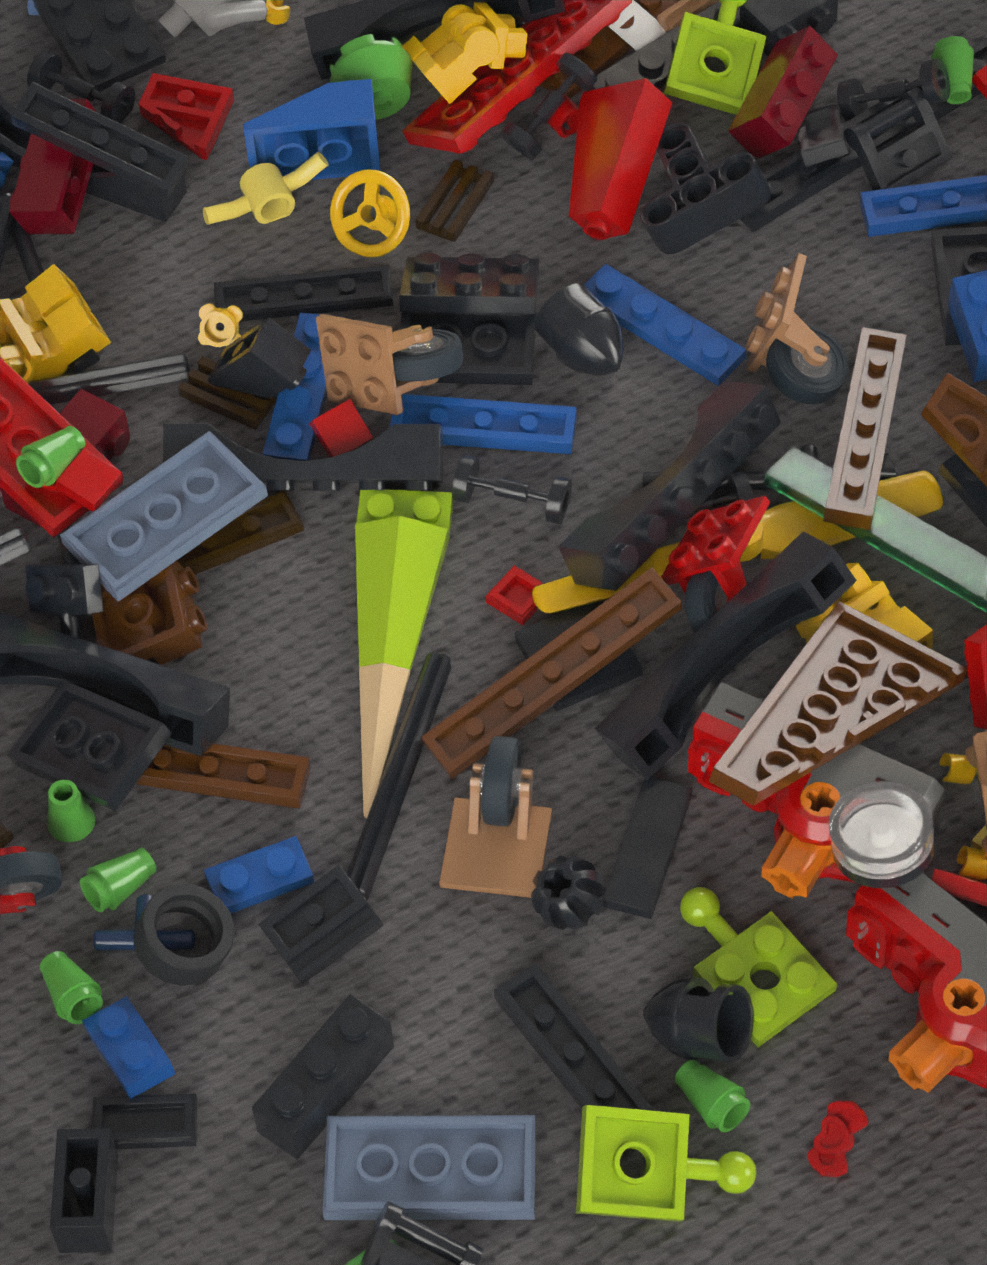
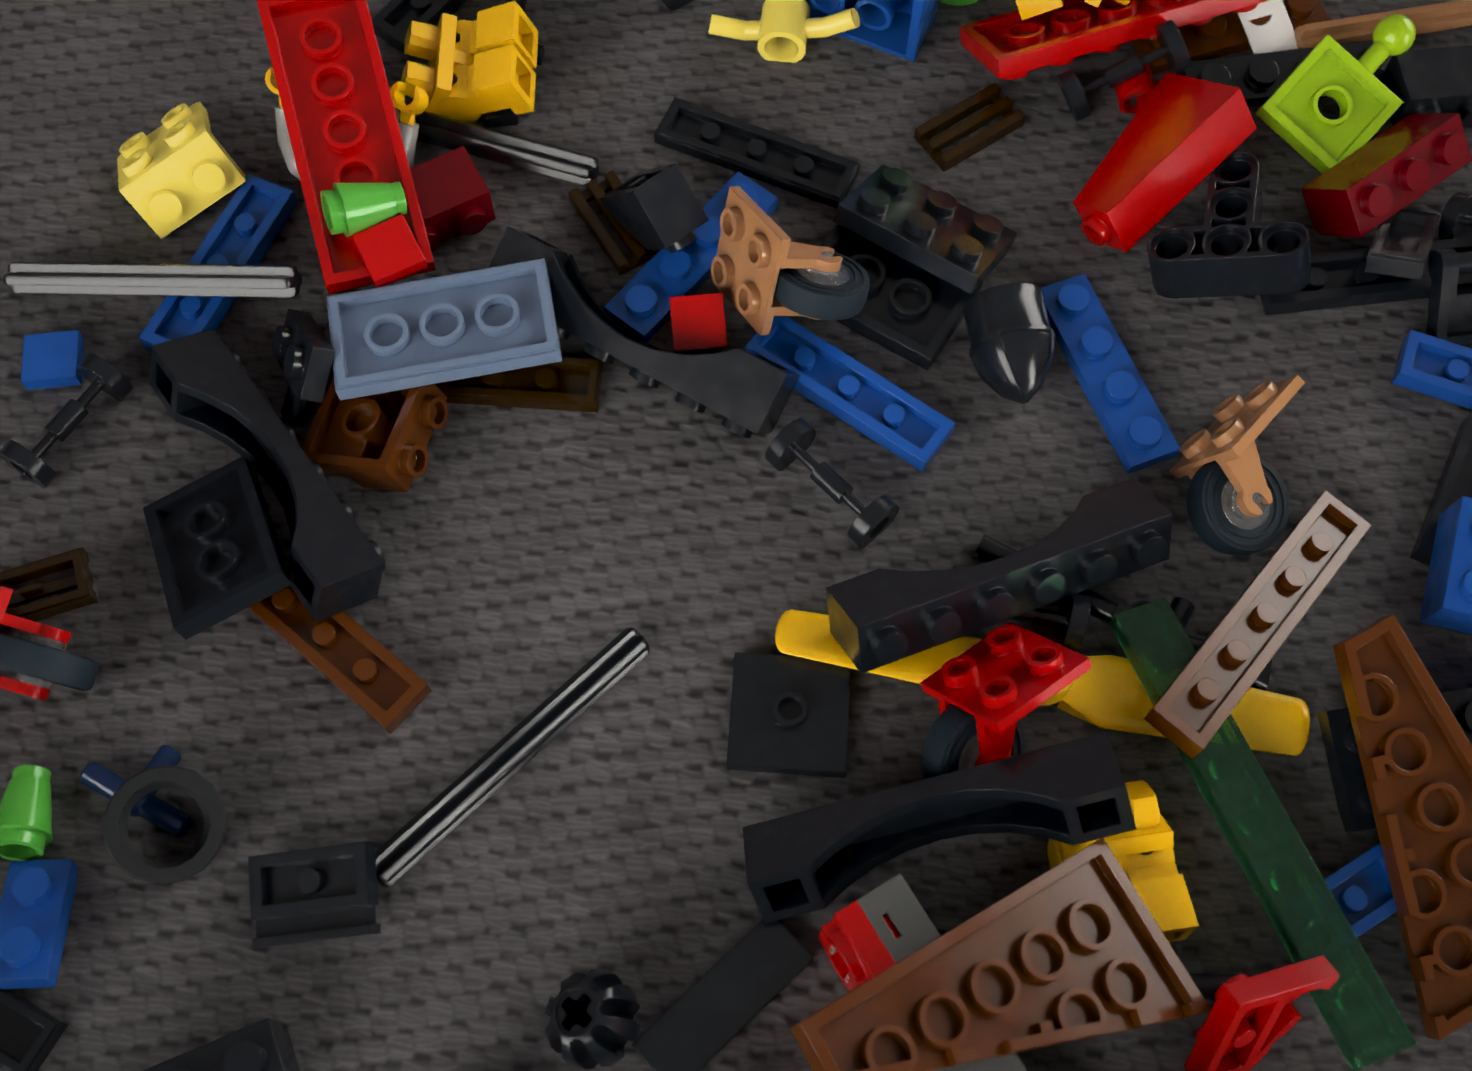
camera: 25 degrees right, 10 degrees up
(68, 812) = (147, 610): bright green cone -> none
(116, 879) = (152, 713): bright green cone -> none
(211, 316) = (638, 141): yellow plate -> none
(260, 875) = (297, 791): blue plate -> none
(386, 212) = (882, 102): yellow piece -> none
(398, 563) = (659, 509): lime plate -> none
(489, 838) = (568, 889): medium nougat plate -> none
(514, 595) = (763, 604): red tile -> none
(552, 672) = (739, 731): reddish brown plate -> none

